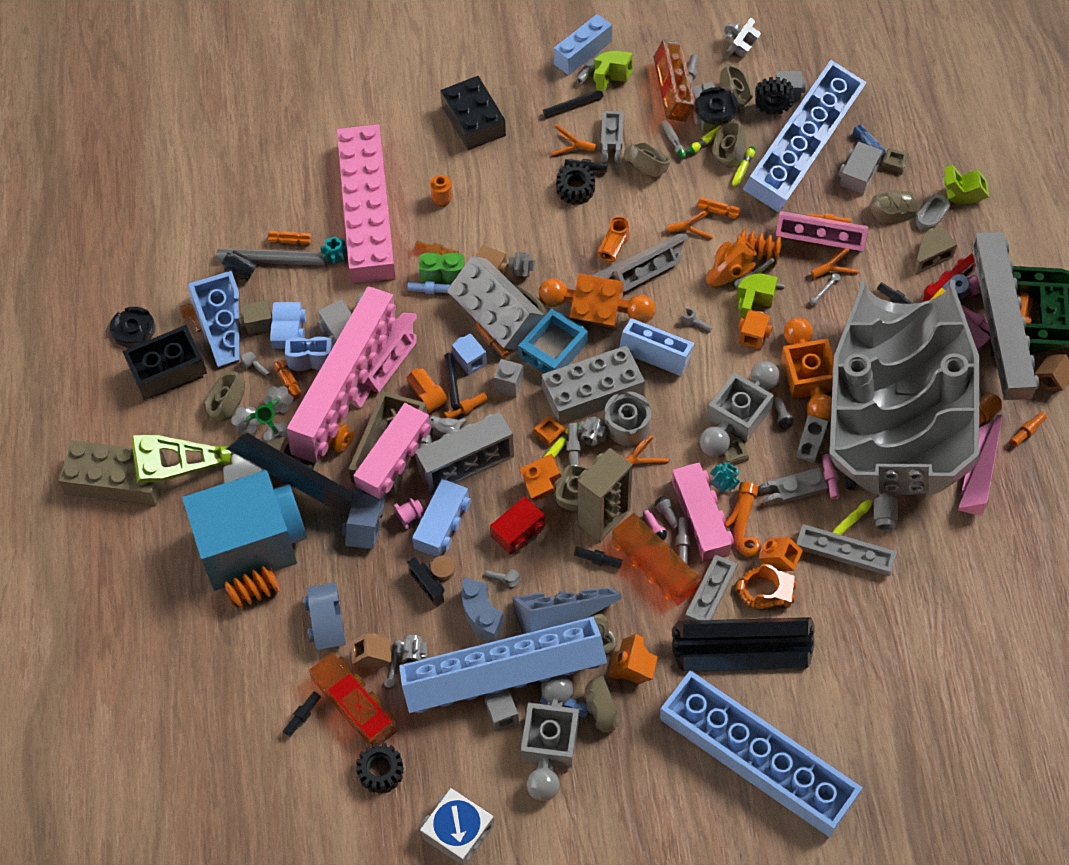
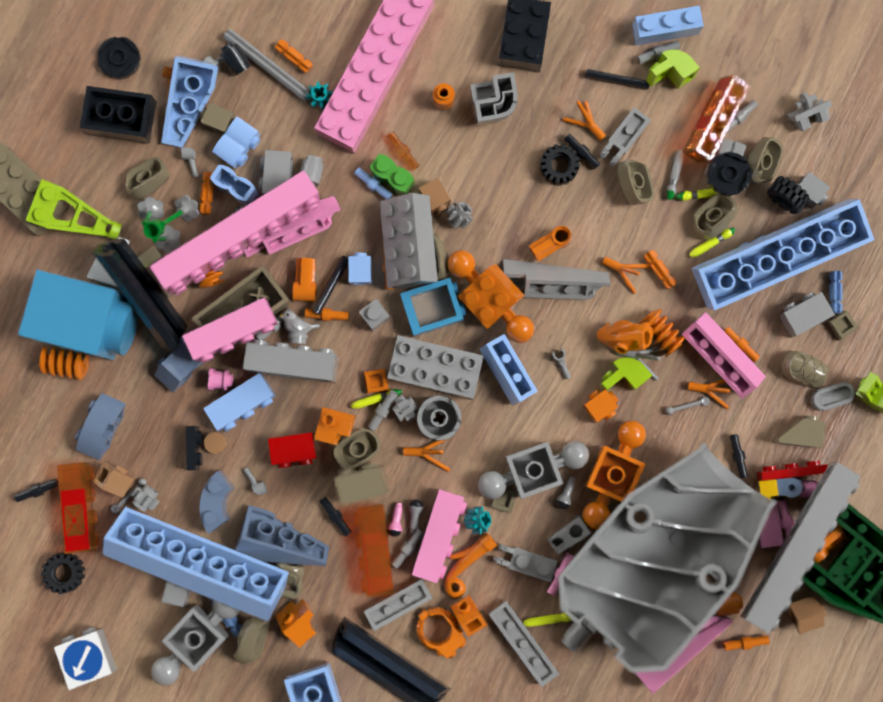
camera: 35 degrees right, 25 degrees up
(486, 166) = (494, 99): none -> light grey brick

